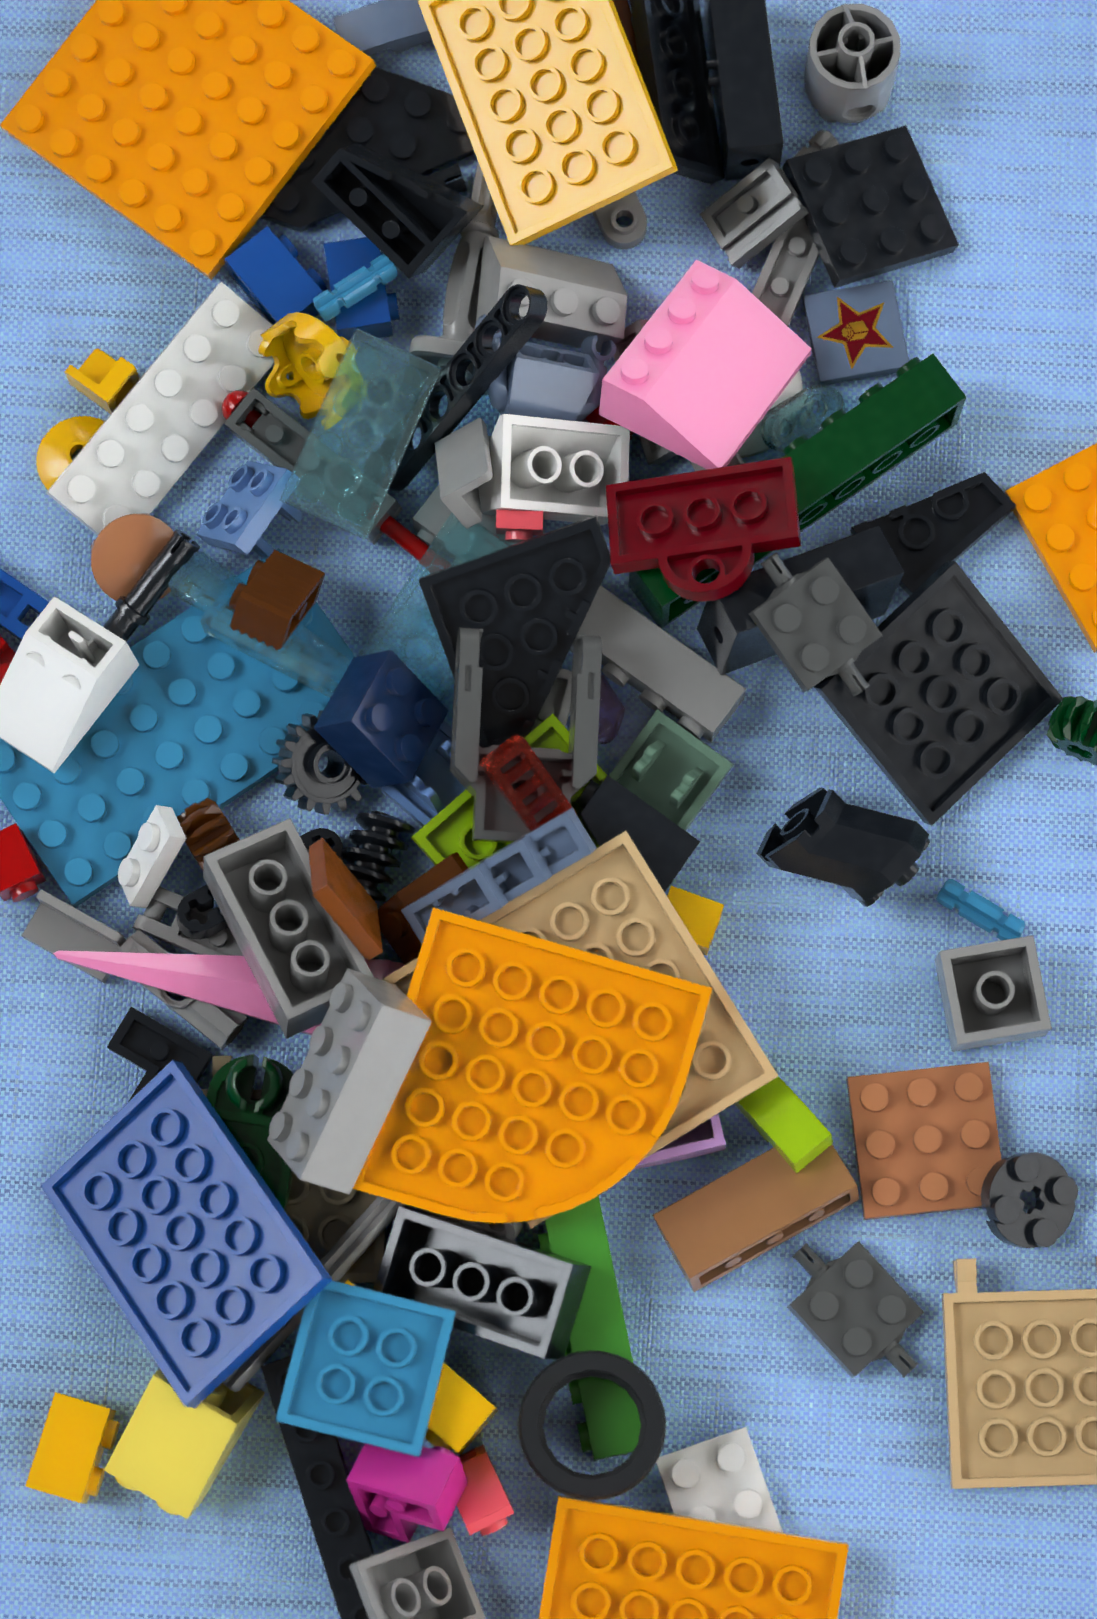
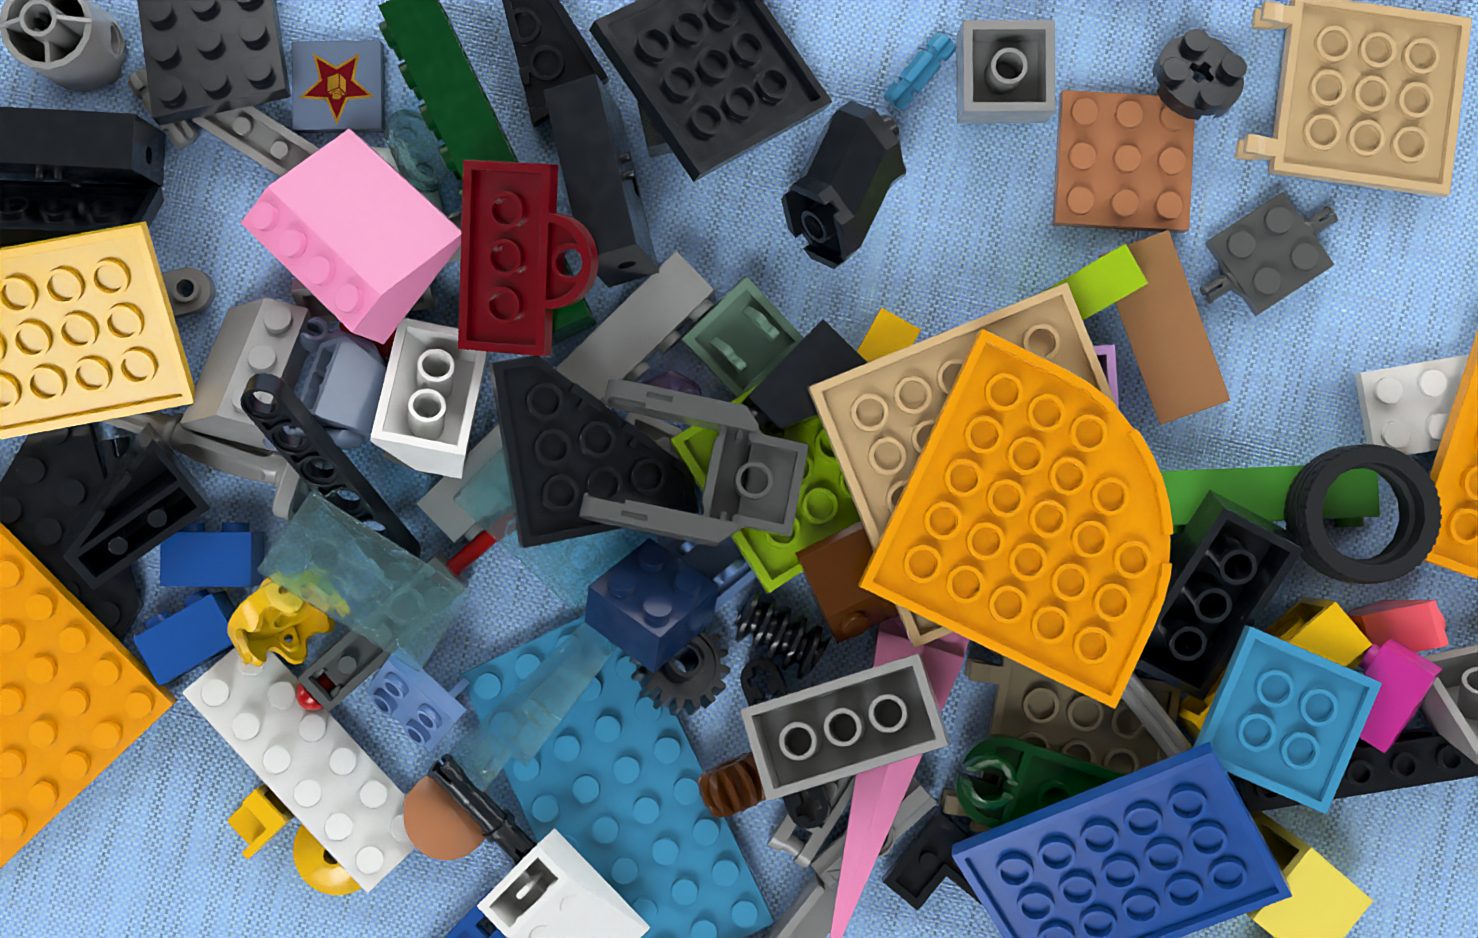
camera: 85 degrees left, 10 degrees up
(151, 856) = (745, 844): white plate -> none
(275, 599) = (516, 690): reddish brown brick -> none
(345, 899) = (832, 669): dark orange tile -> none
(348, 1081) = (1015, 694): light grey brick -> none
(355, 287) = (210, 562): dark azure axle -> none
(463, 467) = (418, 485): light grey panel -> none
(502, 755) = (725, 490): clear red slope -> none
(506, 872) = (832, 511): sand blue slope -> none
(519, 524) = (481, 440): coral plate -> none
(754, 213) = (201, 160): dark grey plate -> none
(815, 624) = (638, 165): dark grey plate -> none

